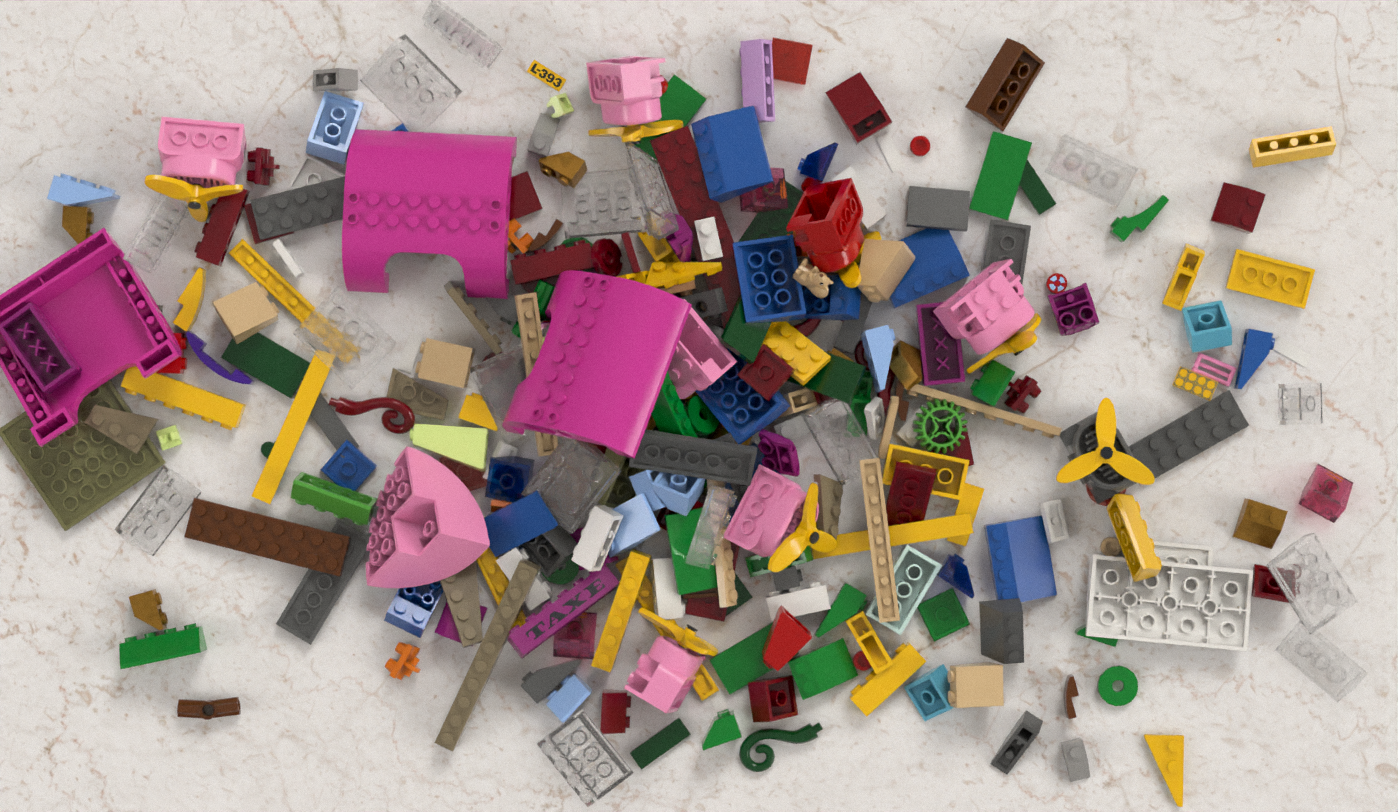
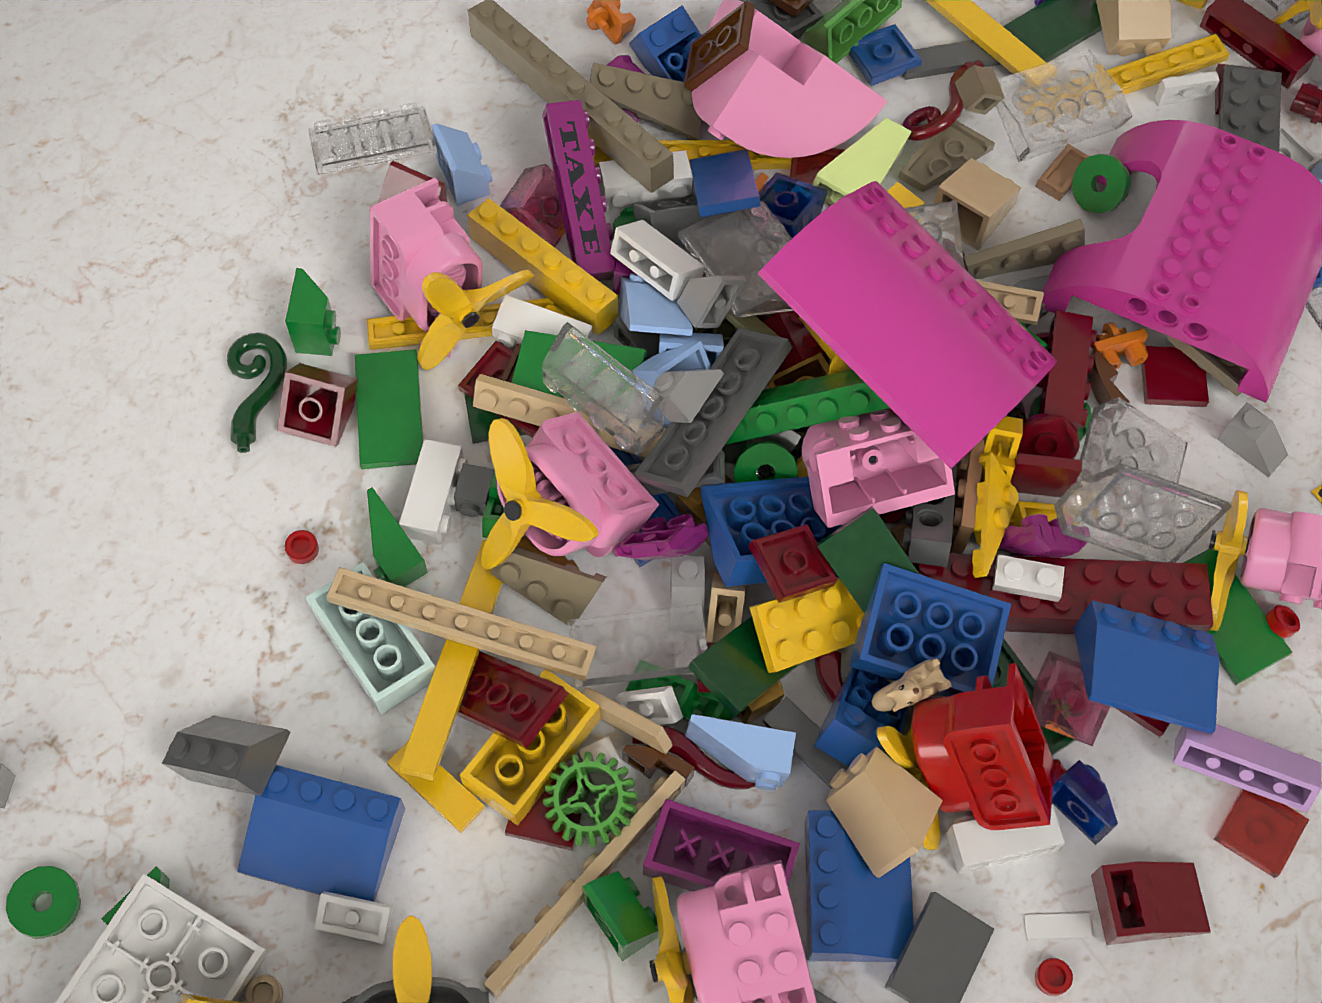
camera: 110 degrees right, 25 degrees down
(363, 392) = (979, 89): none -> dark tan brick
(391, 315) = (1058, 177): none -> medium nougat tile
(404, 294) = (1085, 183): none -> green tile
(421, 569) = (719, 46): none -> reddish brown tile
(546, 679) = (499, 151): dark grey slope -> none
(561, 105) = (1293, 480): yellowish green tile -> none
(564, 167) = (1199, 446): pearl gold slope -> none
(616, 493) = (709, 299): none -> light grey slope
(660, 743) = (340, 250): dark green tile -> none
(689, 477) = (686, 391): none -> light grey slope
(784, 639) = (390, 442): red slope -> none
(822, 668) = (321, 482): green slope -> none
(869, 642) = (318, 556): yellow slope -> none
(882, 685) = (255, 564): yellow brick -> none
(906, 364) = (712, 787): pearl gold slope -> none
(930, 692) = (196, 621): medium azure slope -> none
(943, 614) = (304, 686): green tile -> none
(956, 574) = (347, 722): clear blue slope -> none
(975, 685) = (169, 669): tan slope -> none
(985, 584) = (311, 765): none -> white sticker
(1017, 742) = (54, 707): dark grey slope -> none
(1019, 391) = (587, 954): dark red hips -> none
(1070, 691) = (75, 819): reddish brown slope -> none

